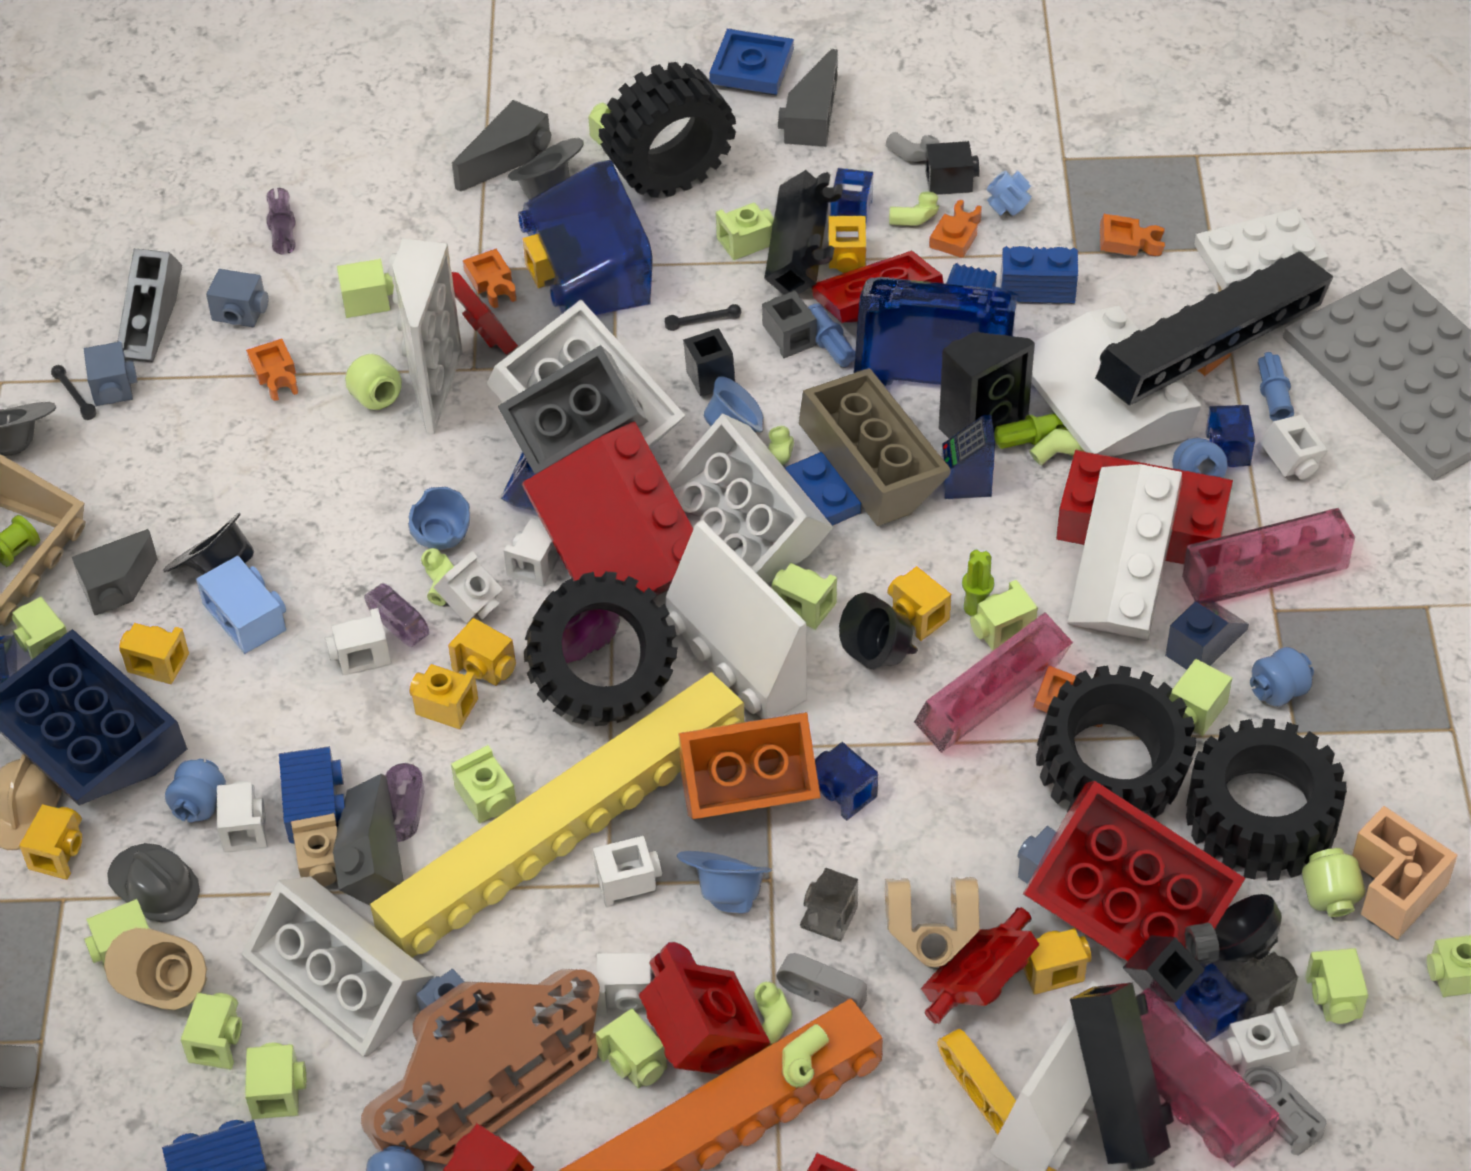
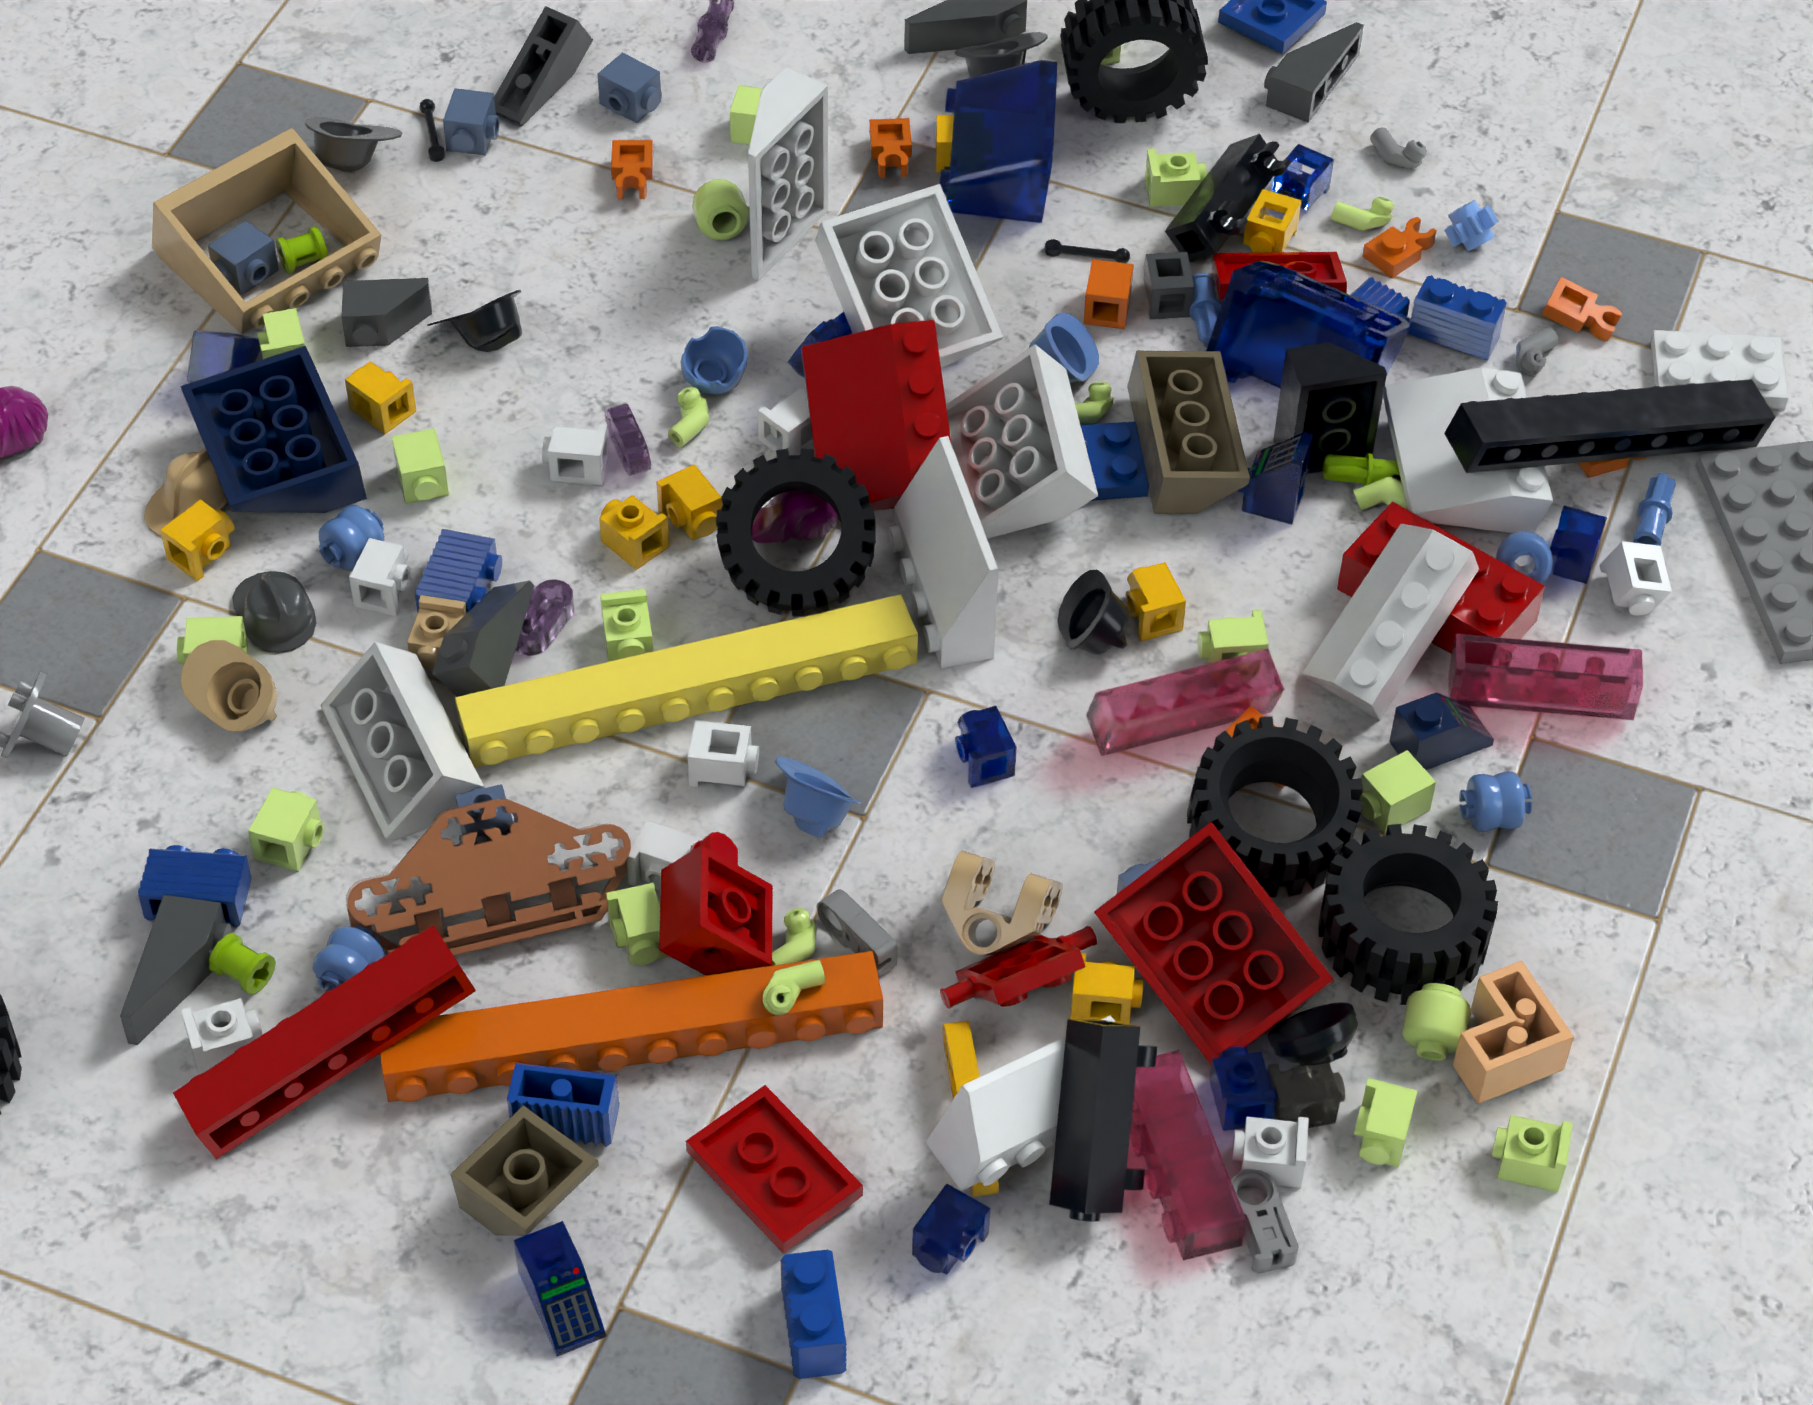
camera: 20 degrees right, 0 degrees up
(212, 1030) = (253, 762): yellowish green brick -> none
(223, 702) = (420, 465): none -> yellowish green brick
(242, 603) = (485, 379): light blue brick -> none
(456, 589) = (701, 451): white brick -> none
(481, 317) = (850, 171): red plate -> none
(571, 409) = (881, 287): dark grey slope -> none
(707, 359) = (1062, 290): black brick -> none
(747, 345) = (1108, 294): none -> orange brick
(748, 765) = (886, 694): orange slope -> none
(806, 593) = (1041, 555): yellowish green brick -> none
(830, 904) = (900, 849): clear smoke brick -> none
(950, 167) = (1423, 181): black brick -> none
(977, 581) = (1220, 597): lime axle -> none
(1108, 284) = (1530, 350): none -> light grey arm
(1164, 967) = (1202, 1036): black brick -> none
(1202, 943) = (1256, 1028): dark grey axle -> none

